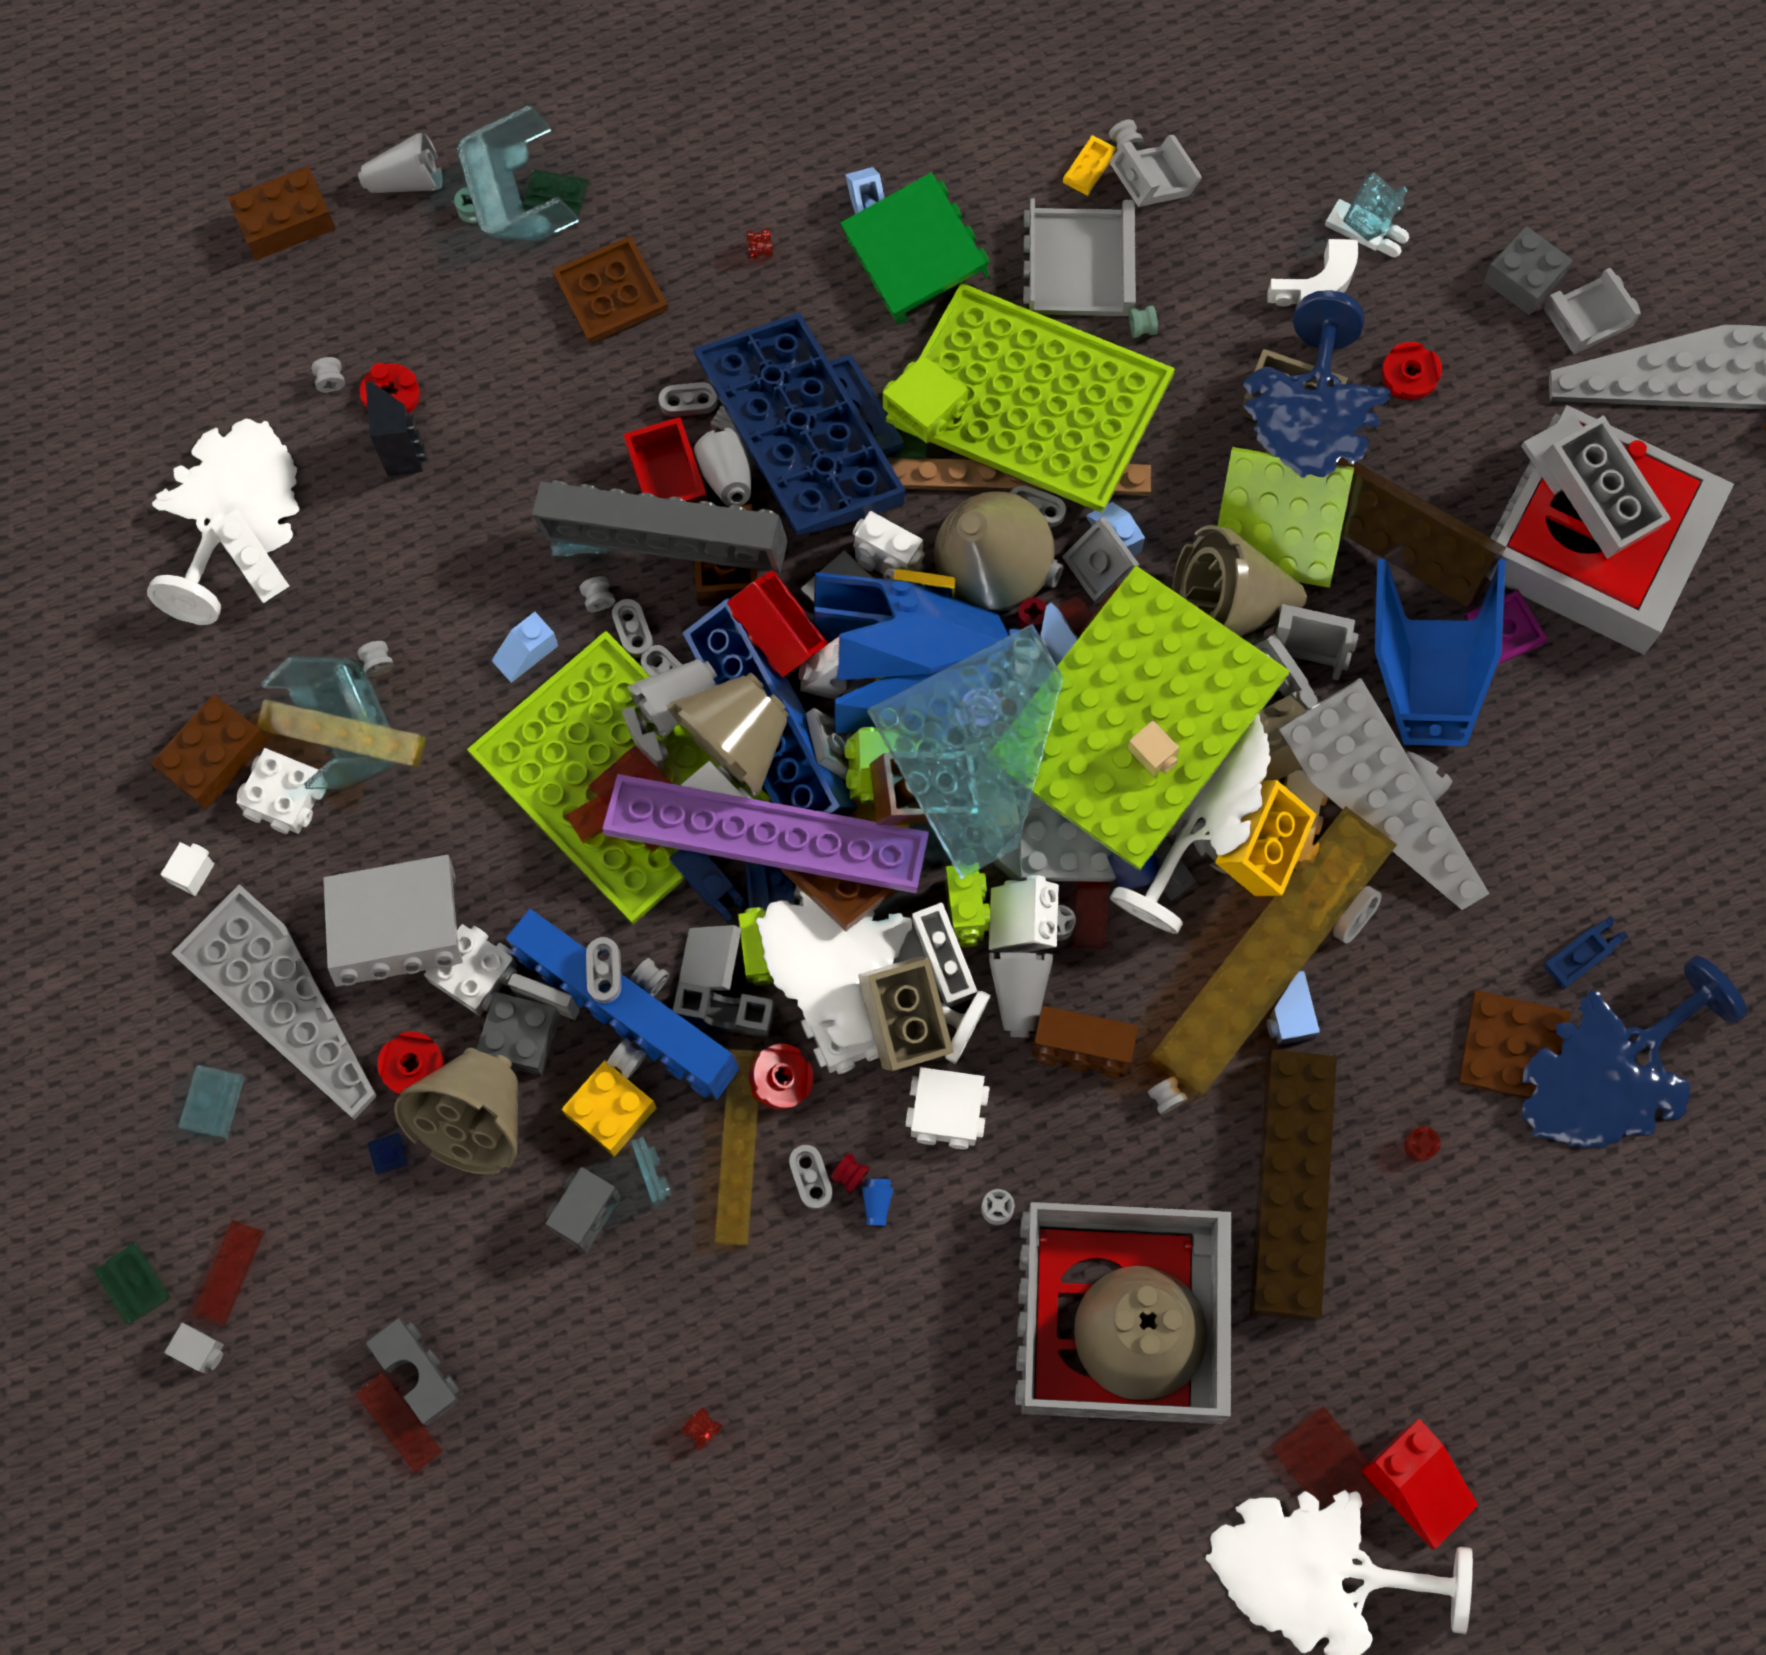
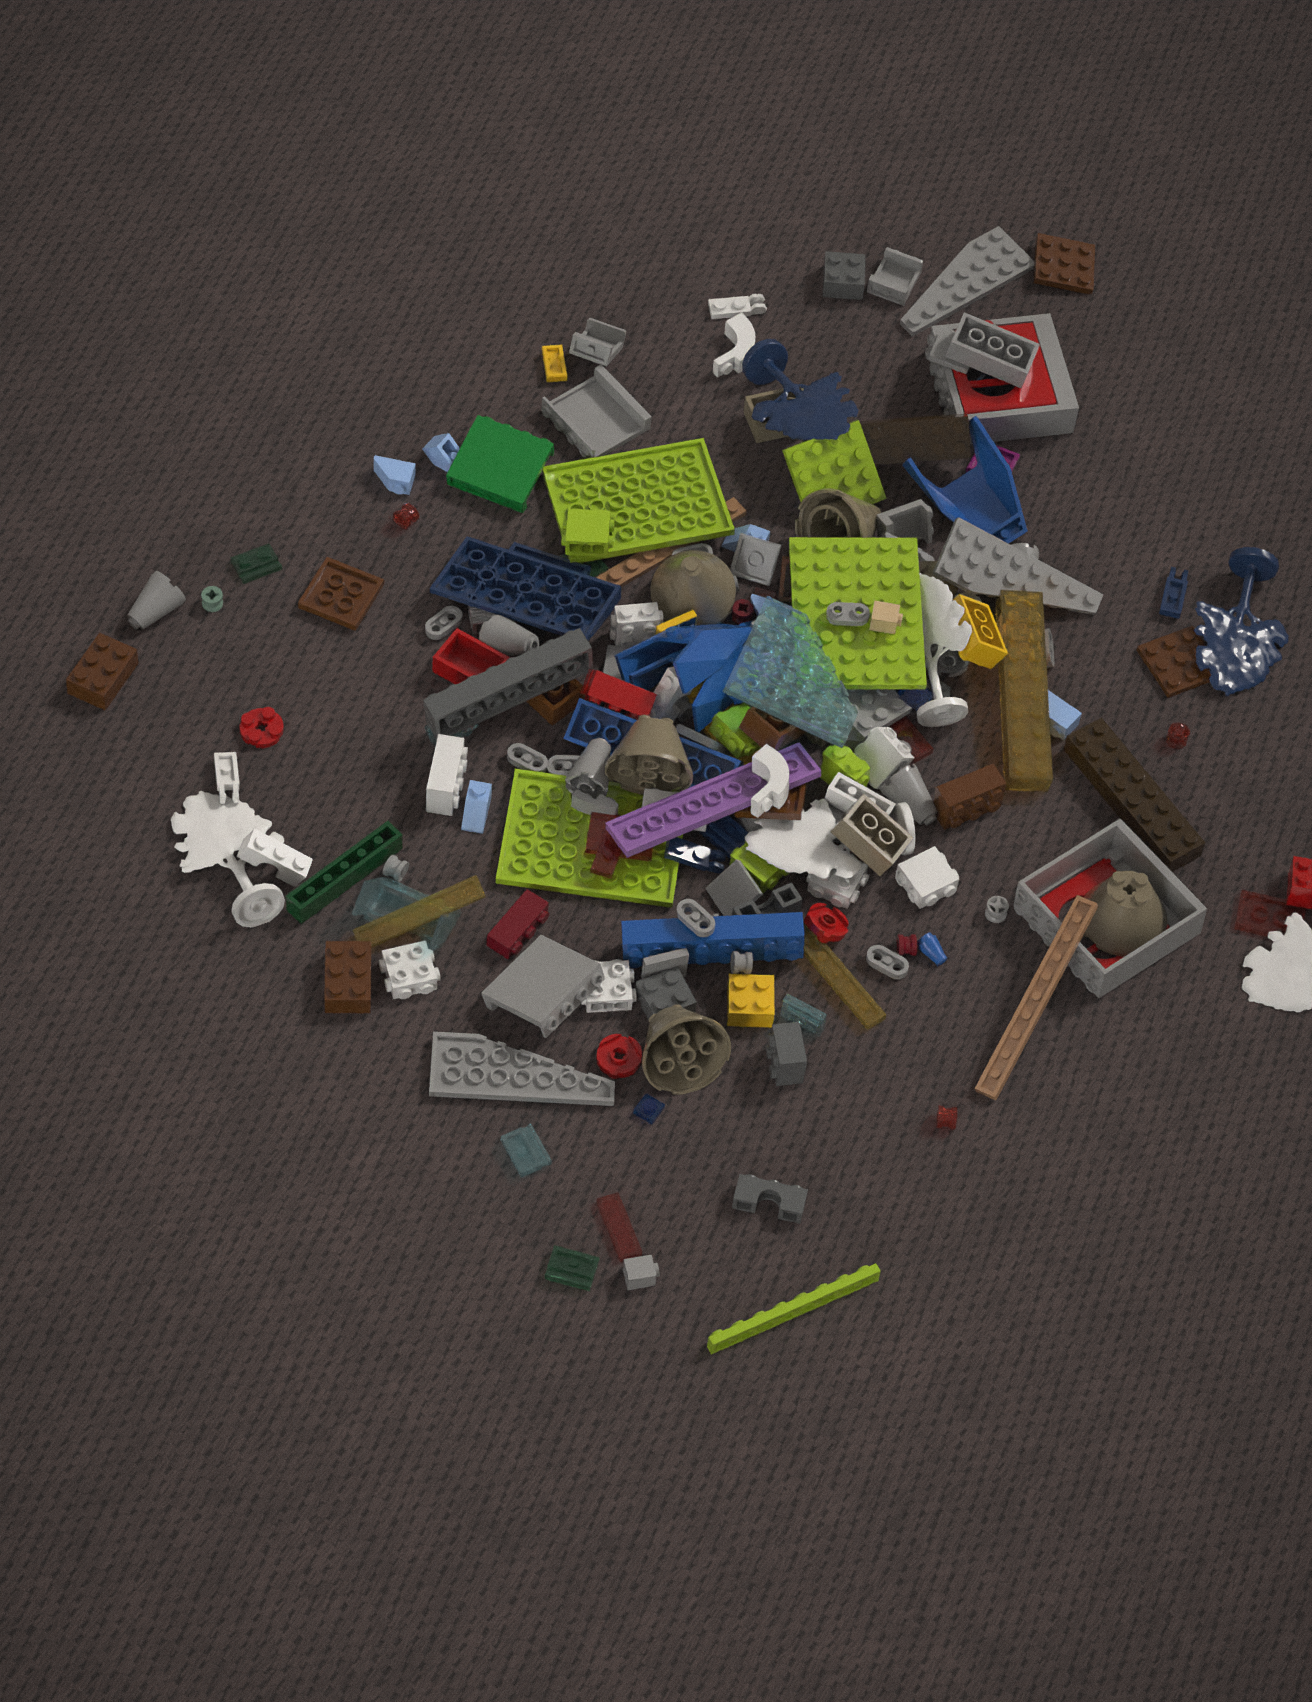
camera: 45 degrees left, 15 degrees down
(188, 868) = (394, 1044): white brick -> none
(298, 424) = (227, 775): none -> white hinge
(304, 1525) = (785, 1311): none -> lime plate
(312, 625) = (344, 872): none -> dark green brick
(328, 374) = (217, 740): light grey wheel -> none
(394, 433) = (297, 737): black slope -> none
(399, 1422) = (784, 1231): clear red tile -> none
(442, 822) = (518, 924): none -> dark red brick
(488, 164) = (203, 563): clear light blue windscreen -> none
(517, 585) = (446, 775): none -> white brick
(597, 594) = (491, 754): light grey wheel -> none
(793, 187) = (395, 474): none -> light blue slope
(845, 869) = (774, 769): none -> white arch
(926, 1366) = (1036, 997): none -> medium nougat plate
(1114, 712) = (847, 614): none -> light grey plate
(1125, 132) = (562, 336): light grey wheel -> none
(1143, 321) = (661, 426): sand green wheel -> none
(1167, 1095) = (1032, 797): light grey wheel -> none
(1374, 207) = (736, 290): clear light blue bracket -> none
(1420, 359) = (833, 355): red plate -> none

